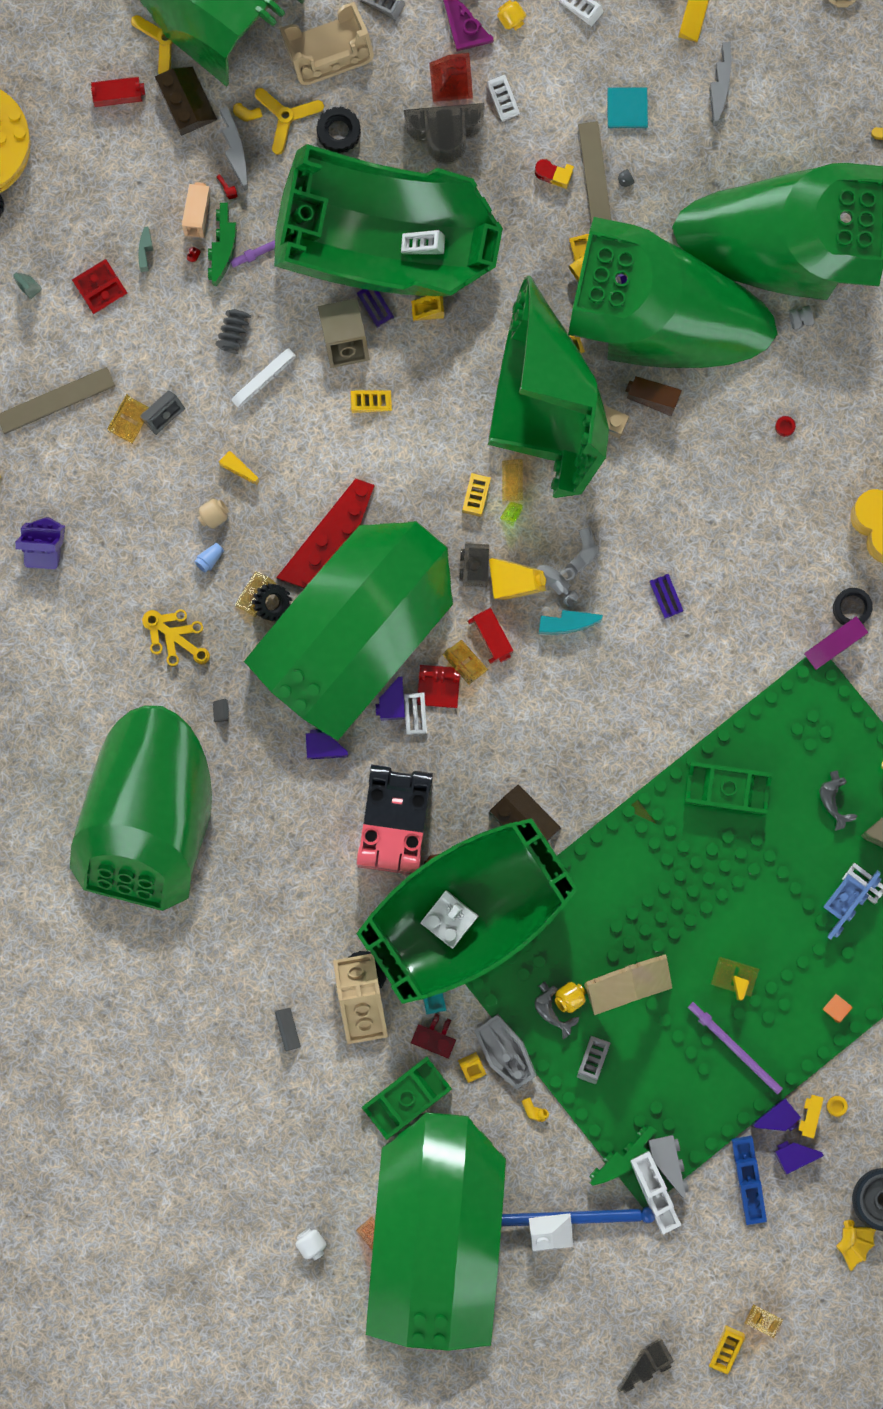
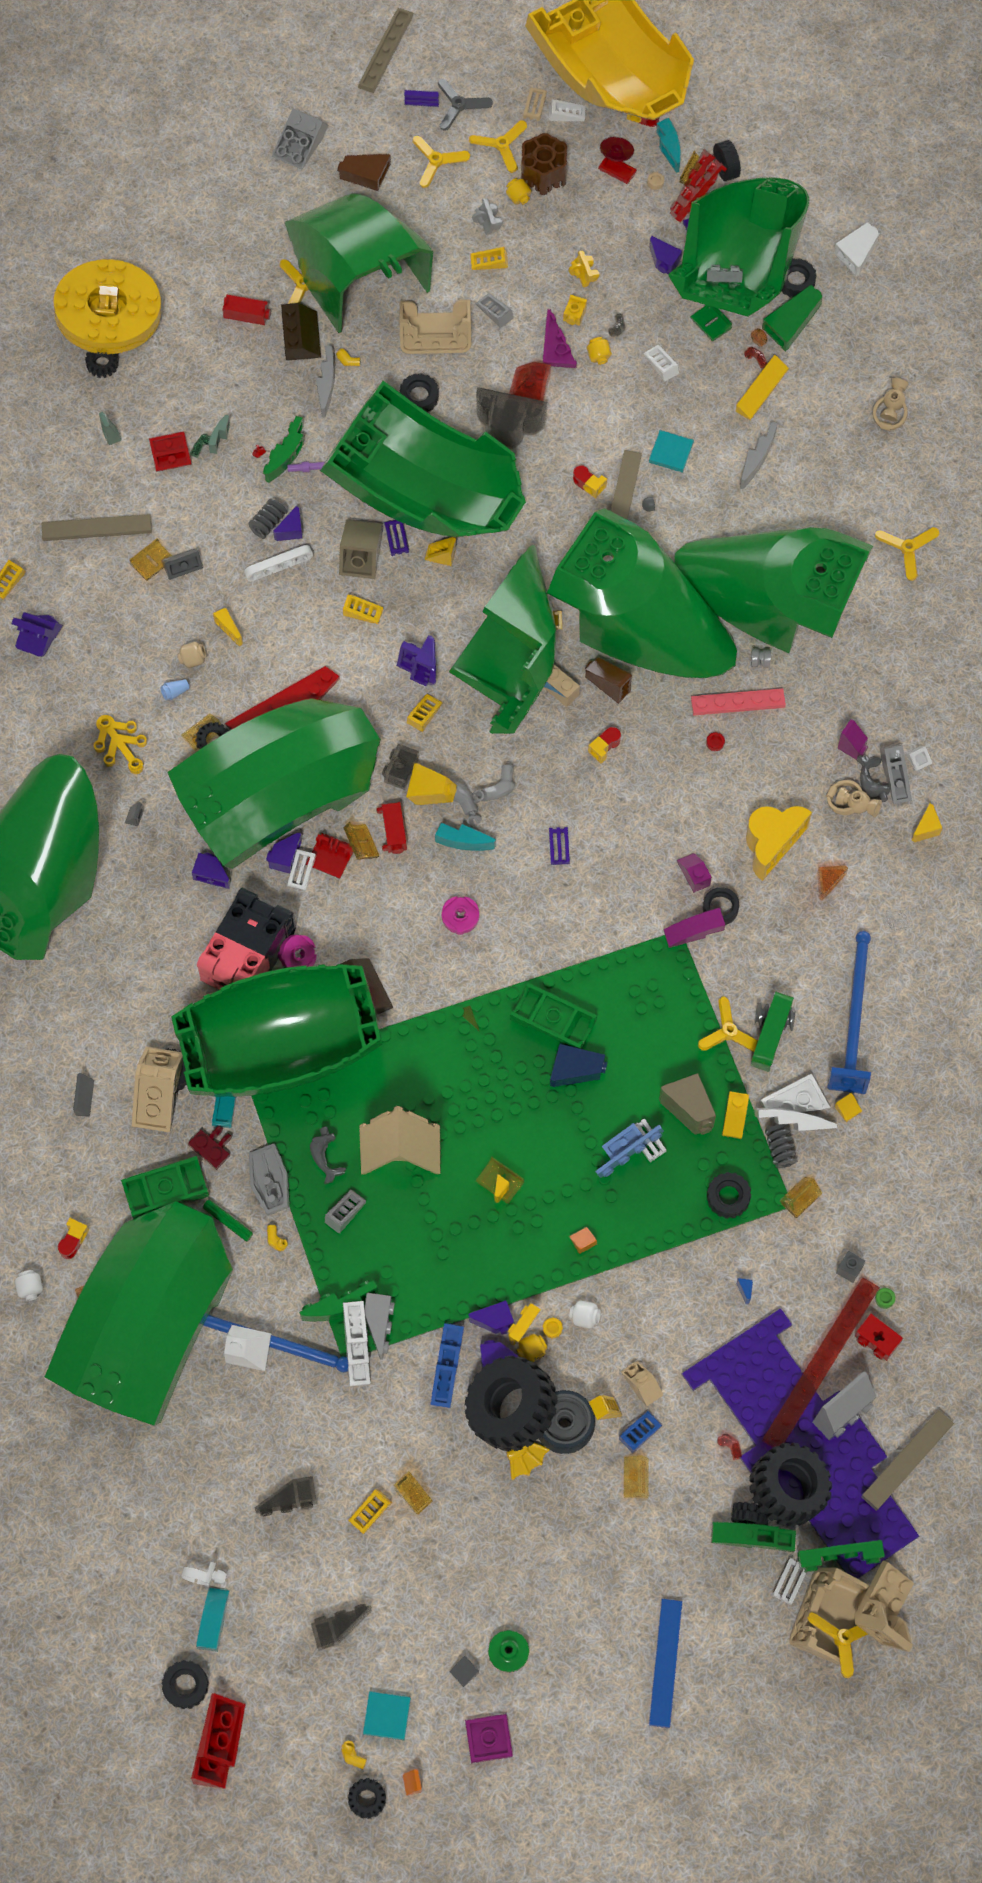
camera: 20 degrees right, 15 degrees down
(127, 267) = (197, 447): none -> clear green arm
(196, 210) = (273, 417): light nougat slope -> none
(229, 191) = (309, 413): red hand -> none
(261, 332) = (290, 527): none -> dark purple slope
(284, 124) = (386, 371): yellow piece -> none
(336, 1181) = (74, 1238): none -> leg
(435, 244) = (465, 502): white slope -> none
(437, 803) = (289, 947): none -> dark pink plate
(449, 919) = (262, 1045): white hinge -> none
(456, 444) = (418, 661): none -> dark purple piece
(472, 1067) = (234, 1184): yellow slope -> none
(480, 1108) = (227, 1220): none -> green axle
(496, 82) = (567, 400): white slope -> none
(511, 513) = (450, 736): clear neon green slope -> none
(512, 480) = (460, 710): clear yellow slope -> none
(570, 997) = (344, 1148): yellow head -> none
(583, 712) = (460, 925): none -> dark pink plate
(677, 461) = (602, 744): none -> leg
(706, 1019) = (459, 1210): medium lavender bar -> none
(768, 830) = (576, 1066): none -> dark blue slope
(793, 373) = (738, 701): none -> coral plate
(813, 578) = (695, 872): none -> magenta slope
(826, 1135) = (532, 1347): none -> yellow head
(827, 794) = (641, 1052): dark grey animal -> none
(857, 1199) = (530, 1417): none -> black tyre
(865, 1083) = (585, 1314): none -> white head

